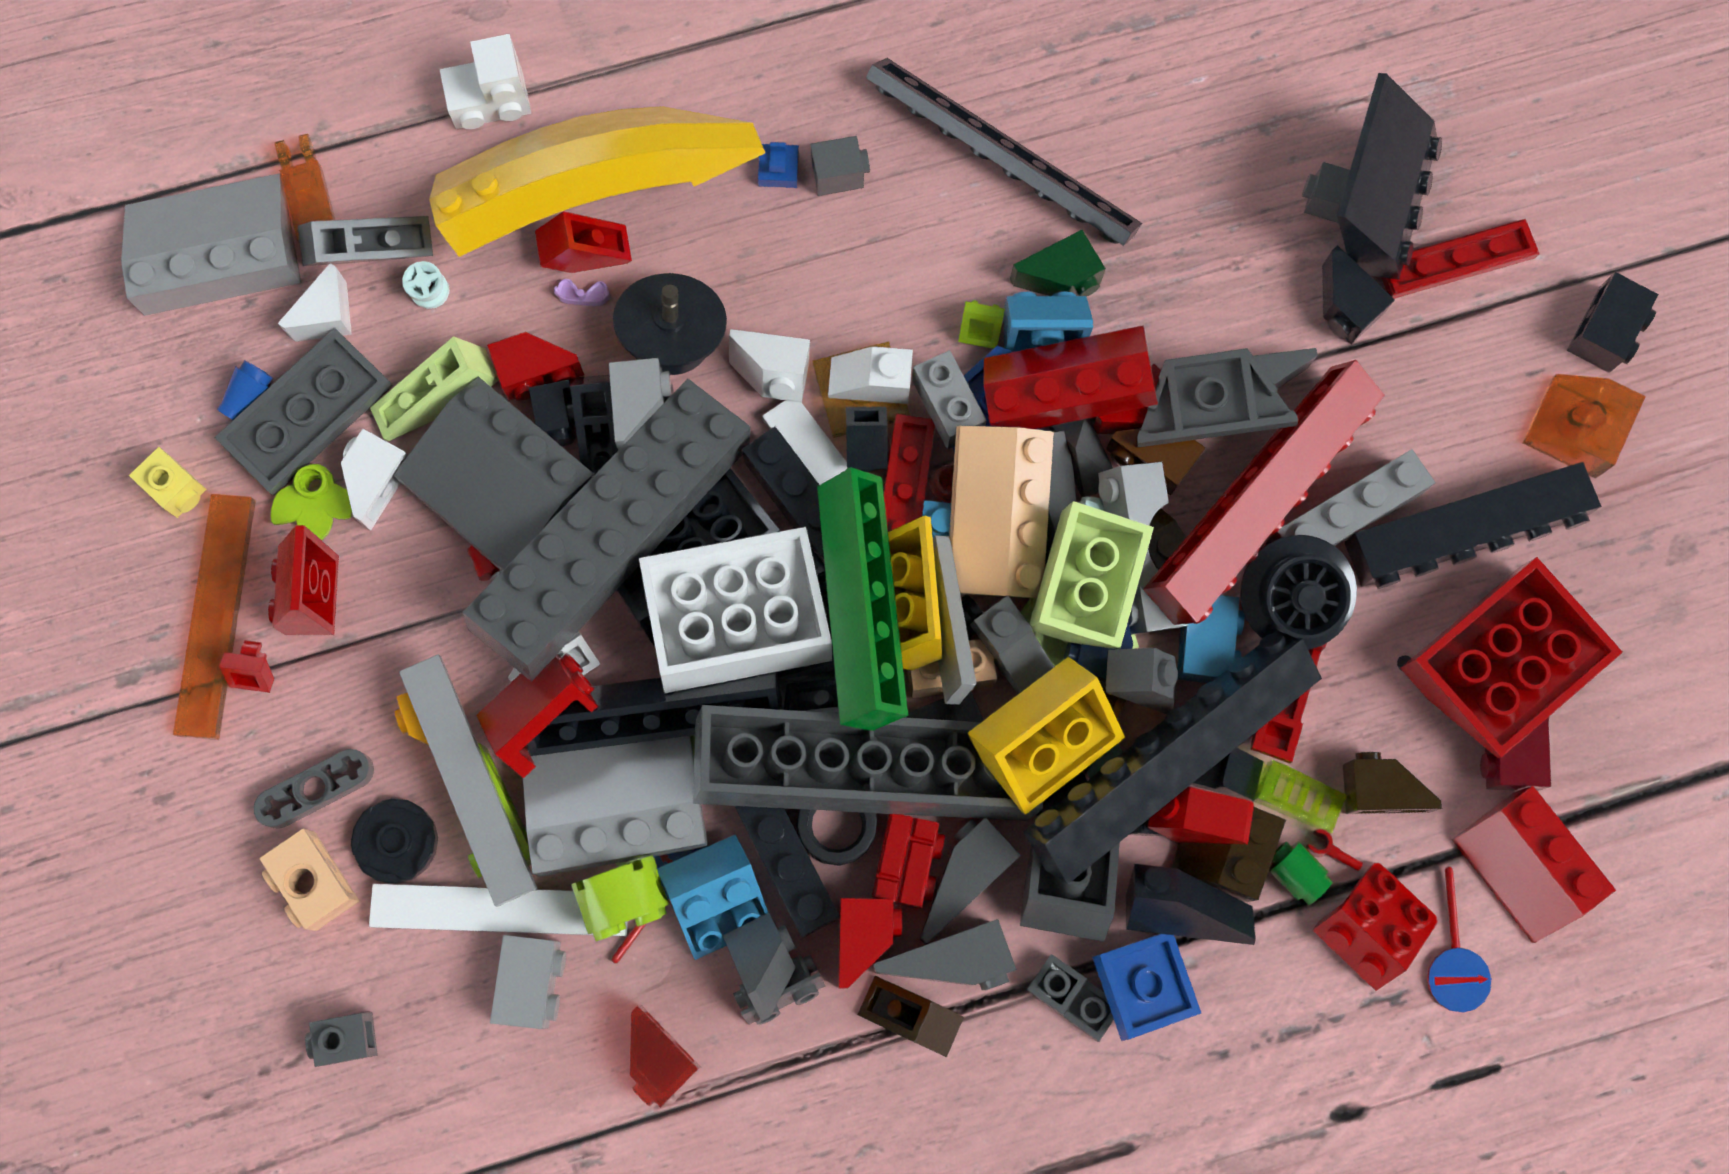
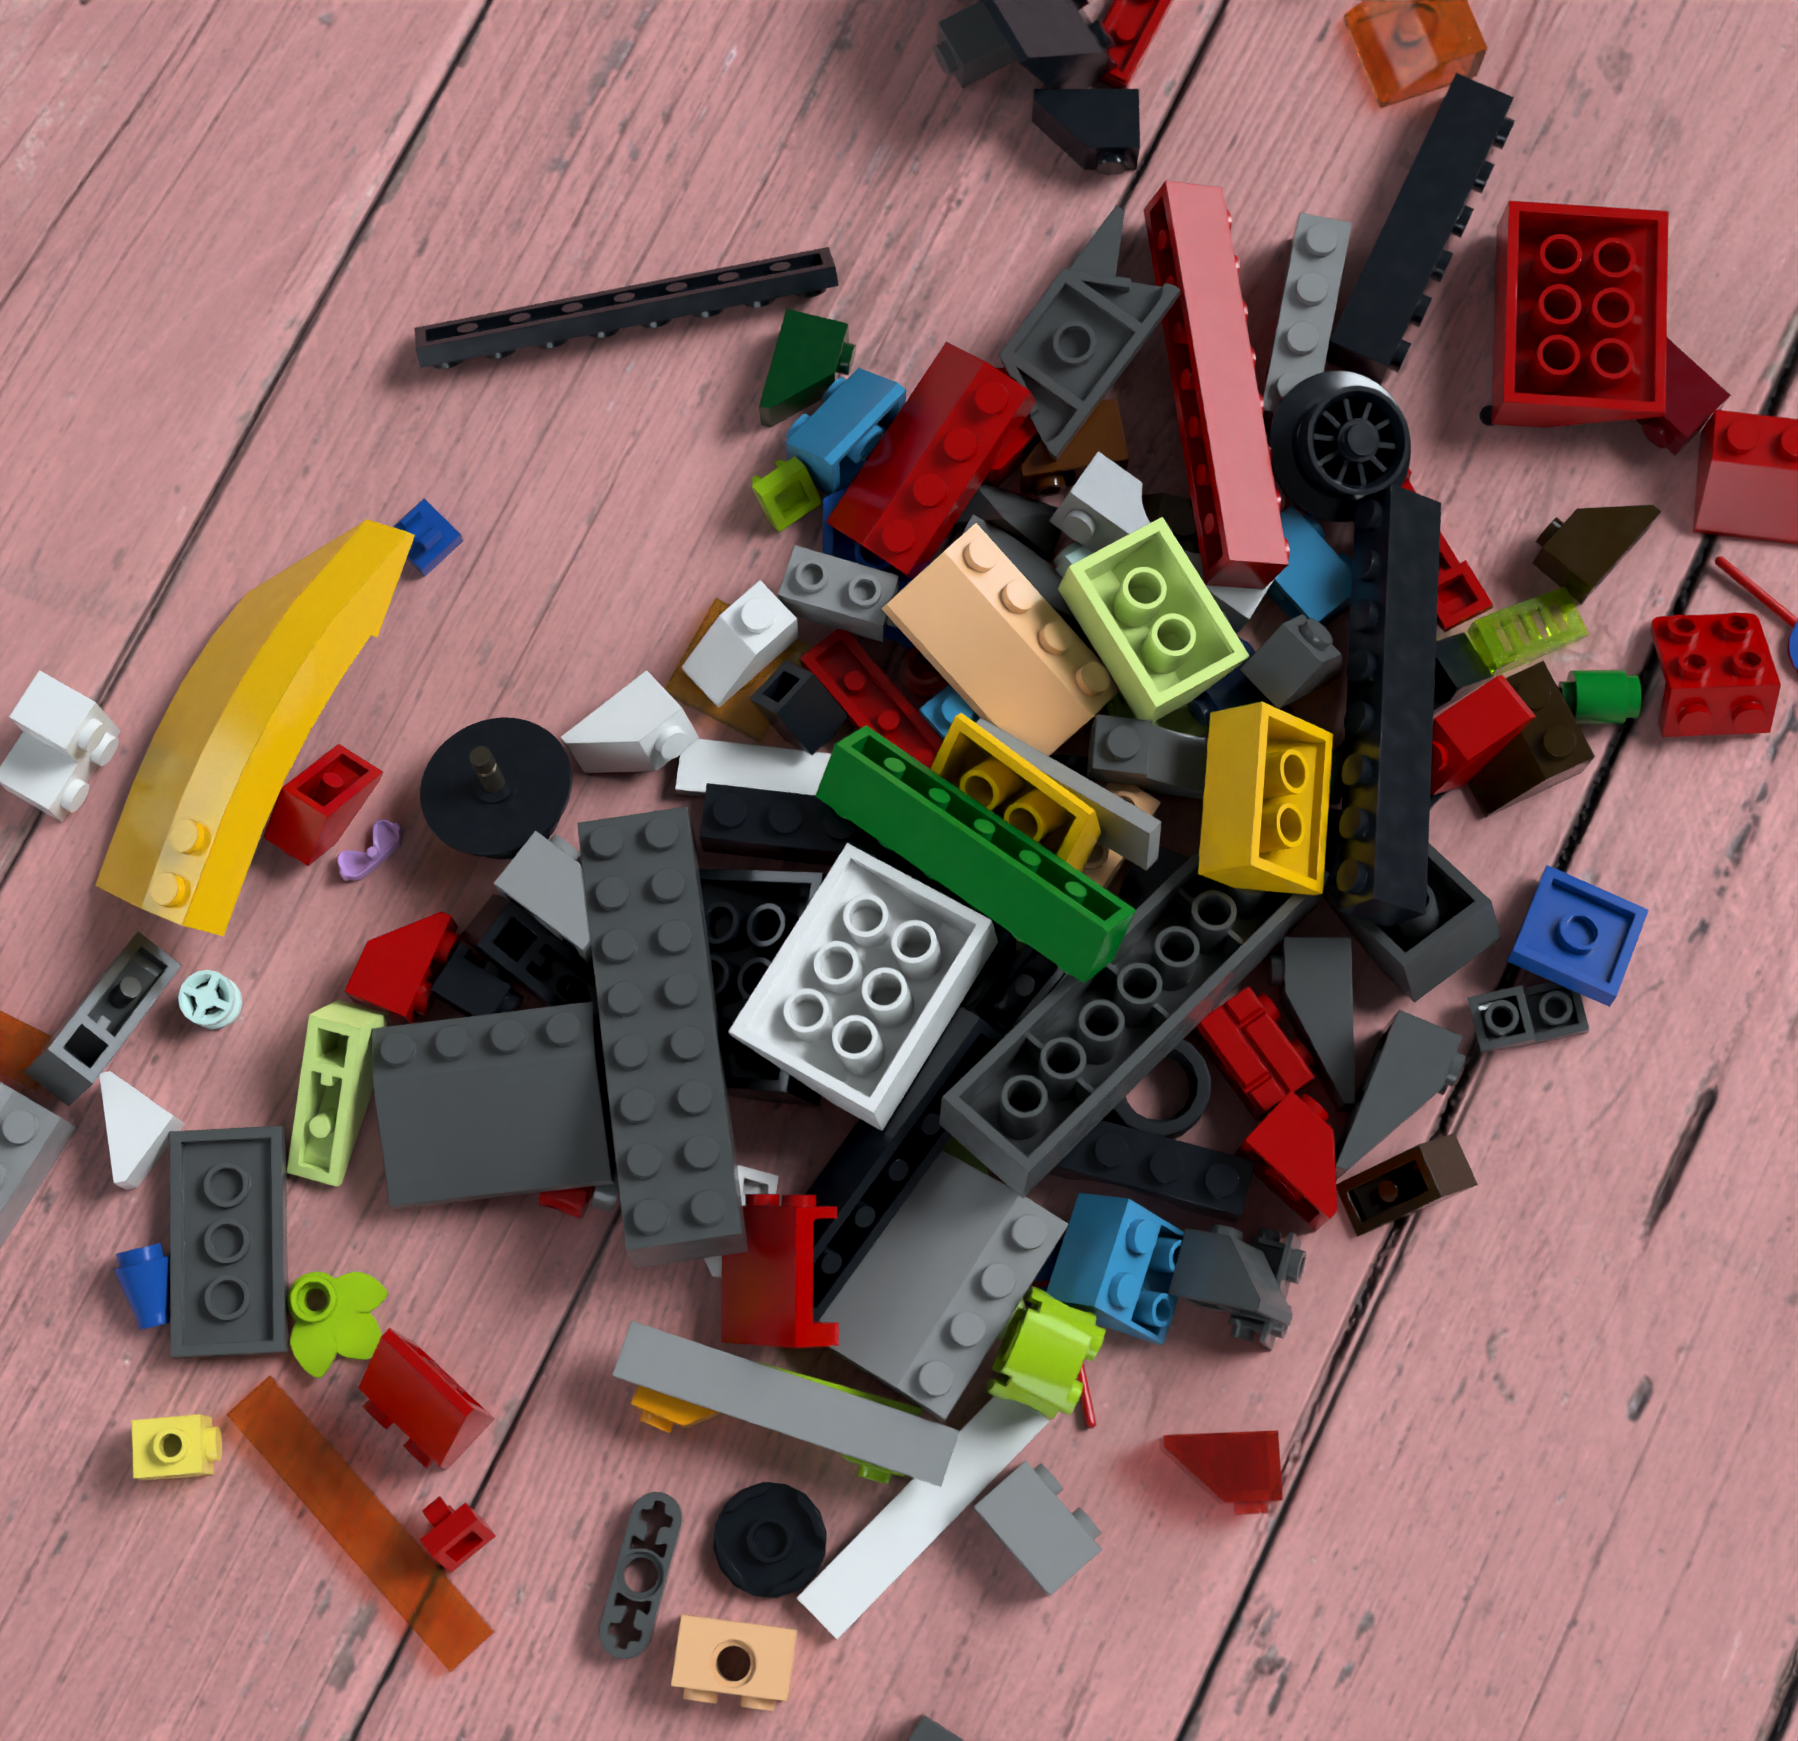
camera: 45 degrees left, 0 degrees up
(369, 475) = (364, 1228): white slope -> none
(839, 165) = (485, 478): dark grey brick -> none
(1181, 905) = (1535, 832): black slope -> none
(1333, 851) = (1606, 648): red hand -> none

